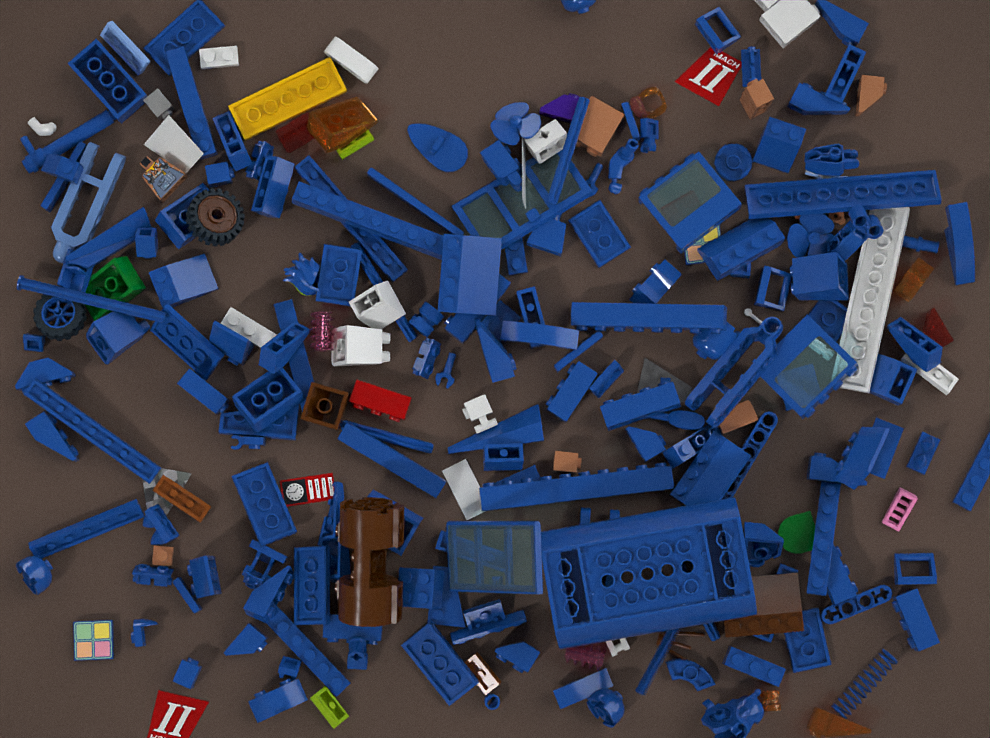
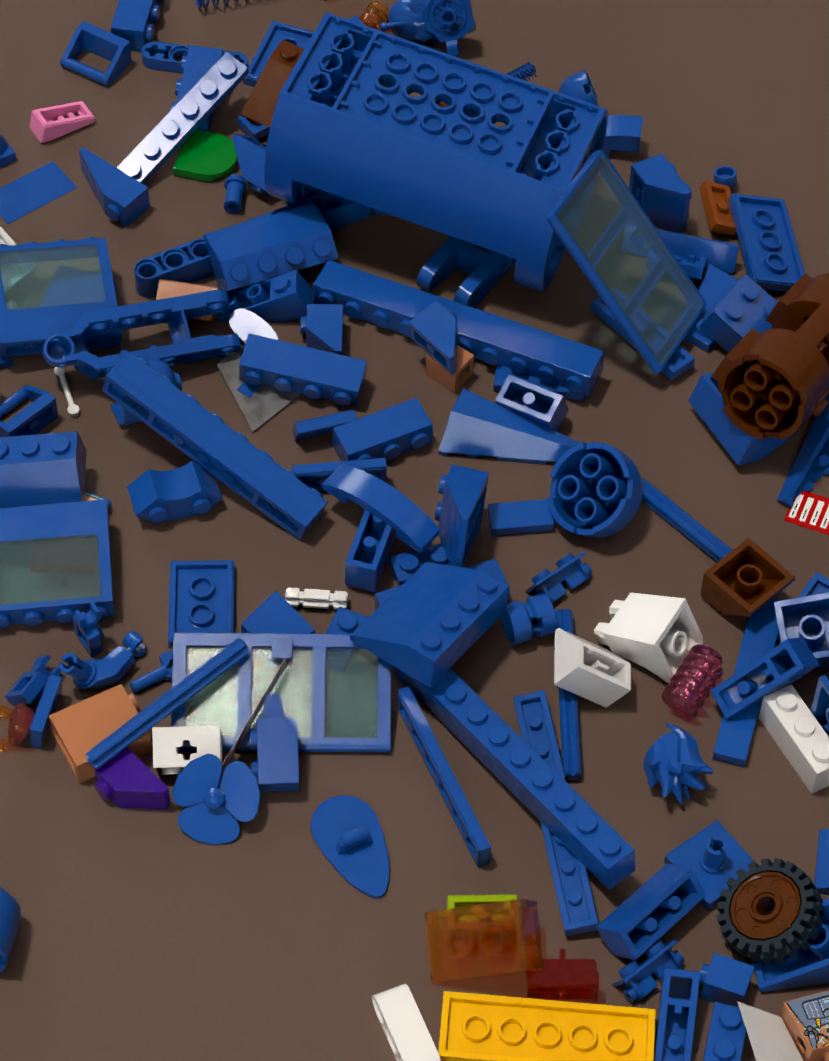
camera: 150 degrees left, 30 degrees down
(260, 237) = (713, 859): none -> blue tile
(338, 274) = (619, 739): blue plate -> none
(380, 401) = (659, 558): red brick -> none
(391, 459) = (689, 482): blue tile -> none
(434, 414) = (595, 490): none -> blue cylinder
(447, 371) = (543, 549): blue bar -> none
(464, 488) = (607, 411): white sticker -> none
(469, 386) = (520, 517): none -> blue tile
(479, 409) = (528, 476): white brick -> none
(543, 270) = (316, 598): none -> white axle
(576, 463) = (437, 334): none -> blue slope
(641, 177) = (88, 629): none -> blue plate
(763, 513) = (235, 187): none -> blue pin
(860, 455) = (62, 167): blue slope -> none

